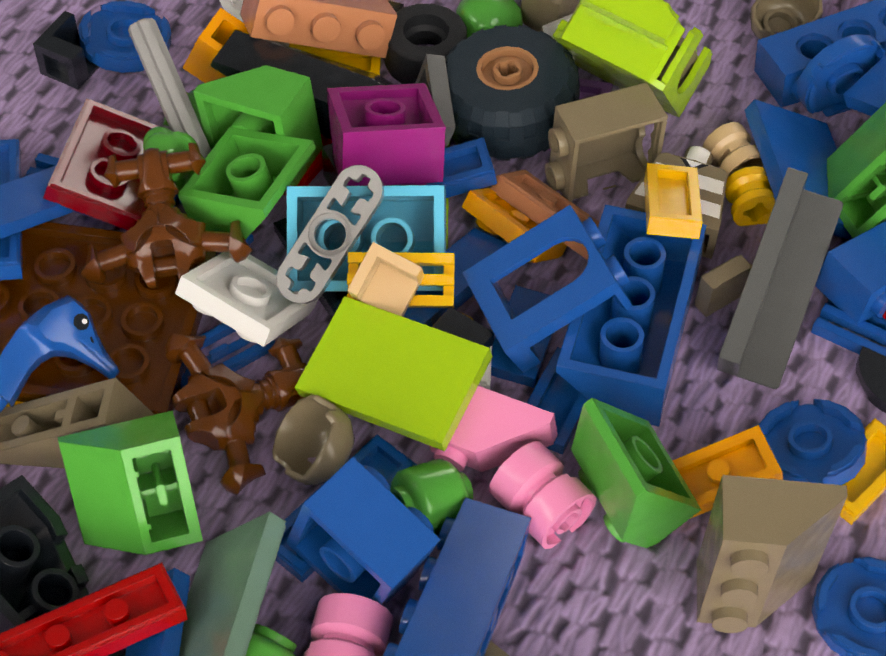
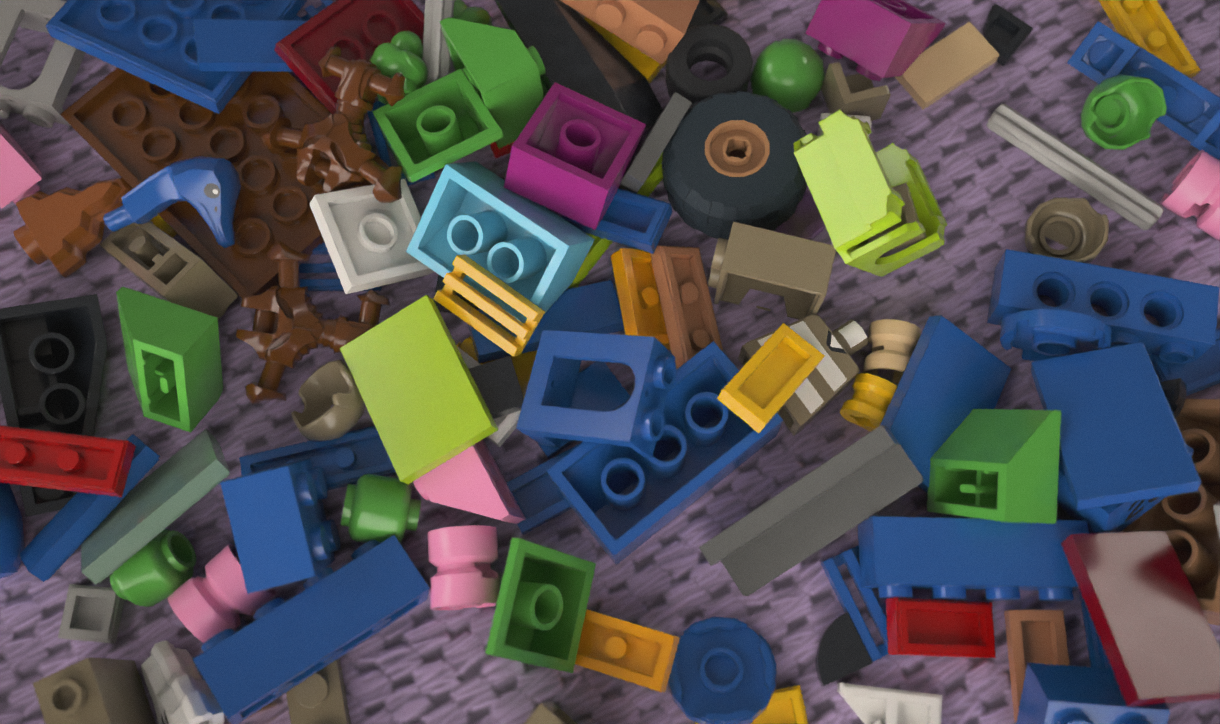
camera: 40 degrees right, 20 degrees up
(363, 208) = (474, 231): light grey beam -> none
(386, 280) = (462, 304): tan panel -> none
(722, 285) = (770, 474): dark tan tile -> none

